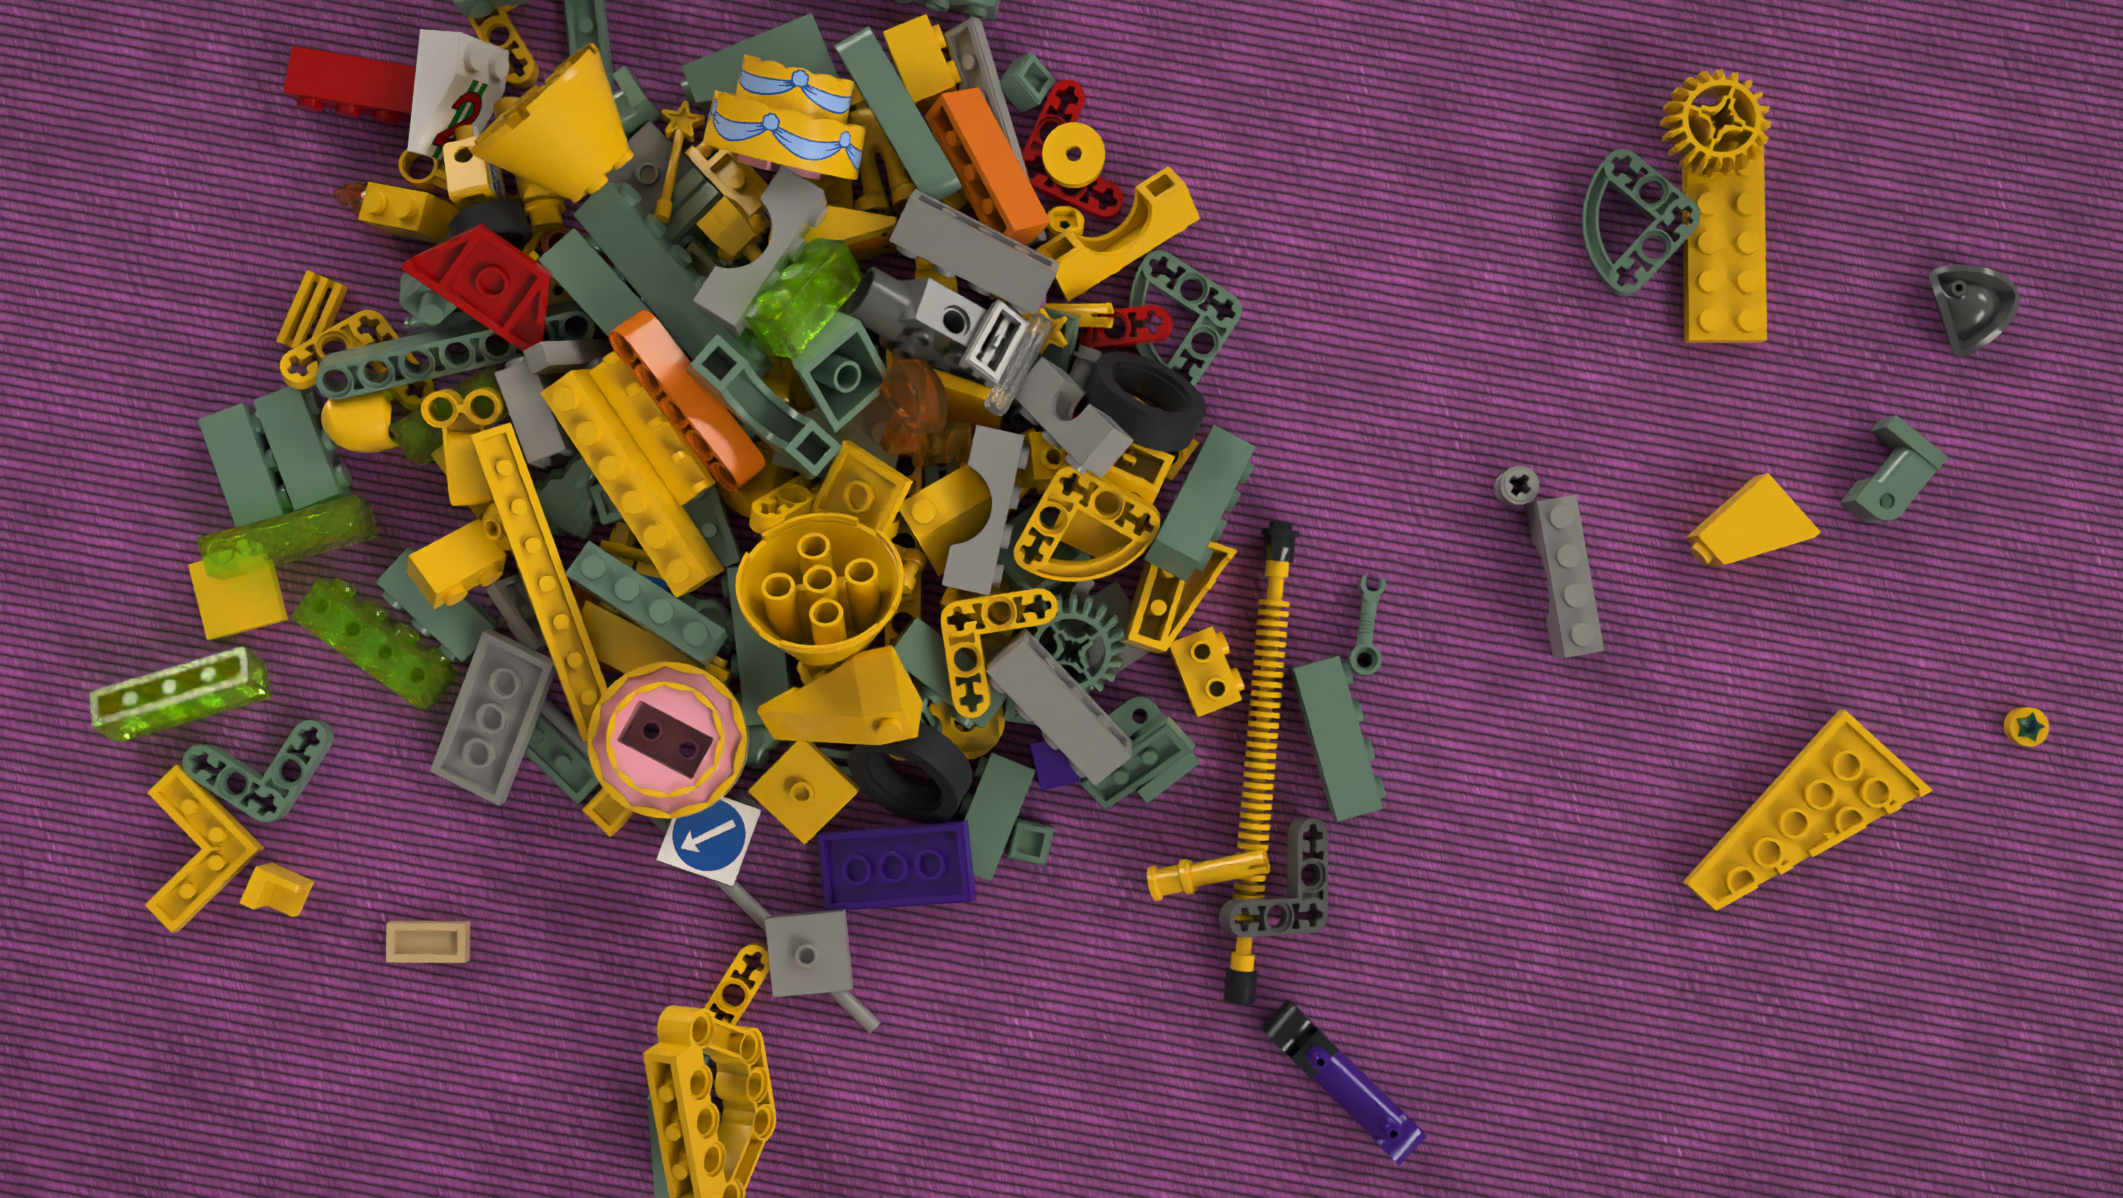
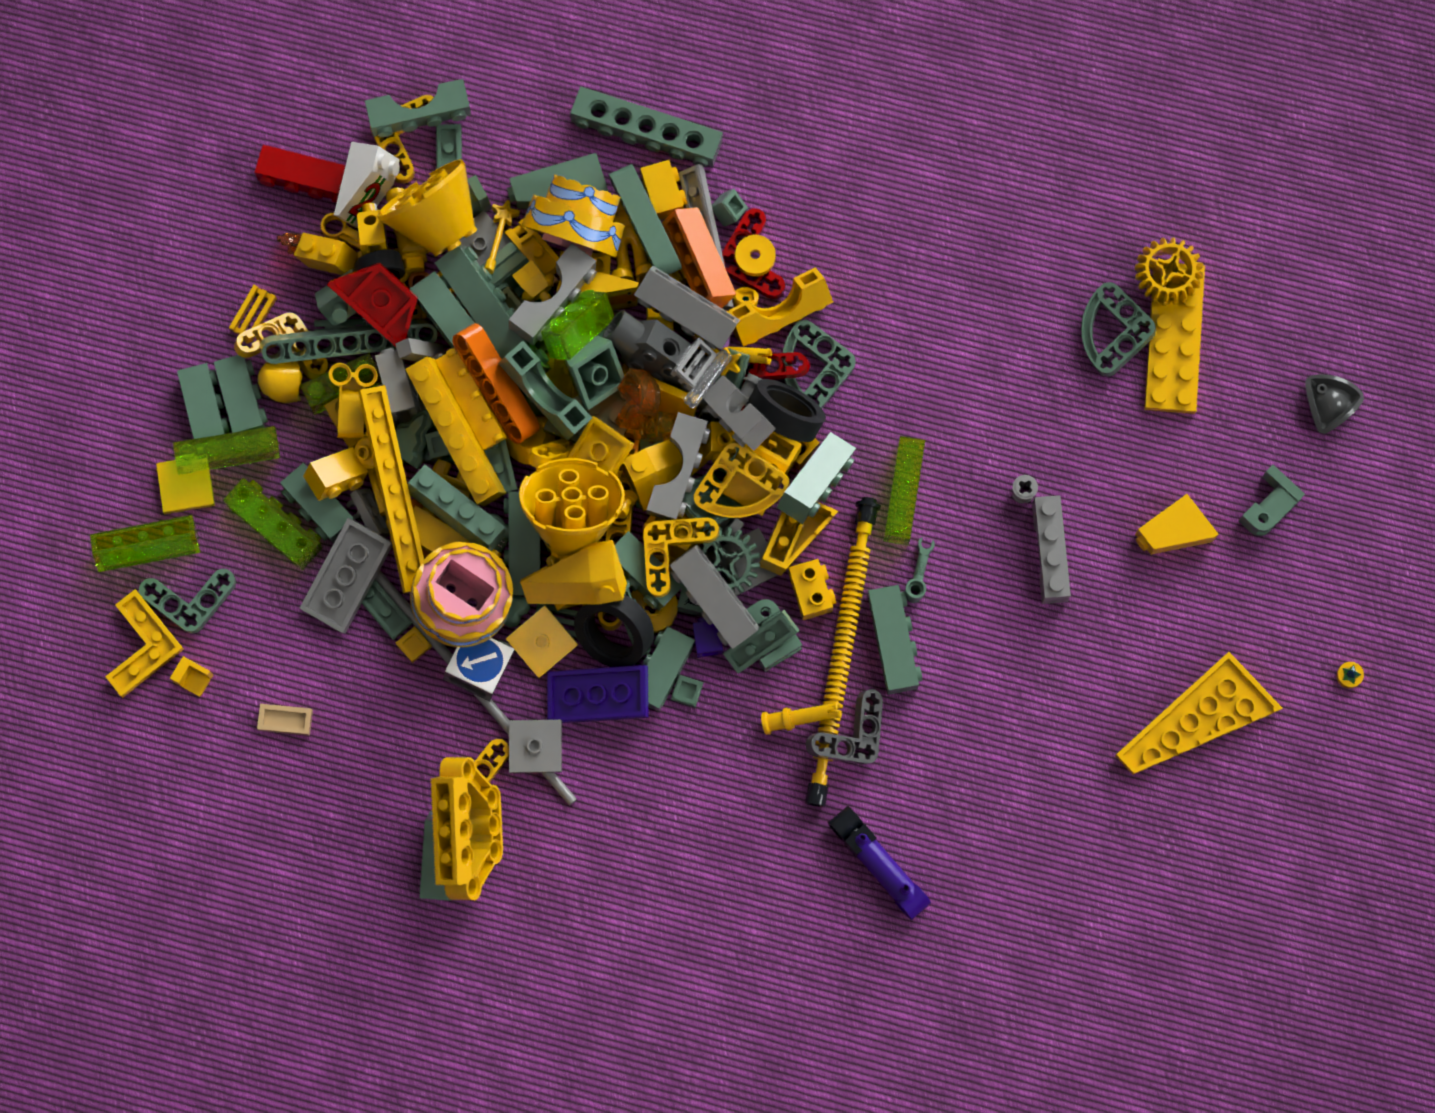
camera: 10 degrees right, 10 degrees down
(1333, 504) = (904, 490): none -> clear neon green brick

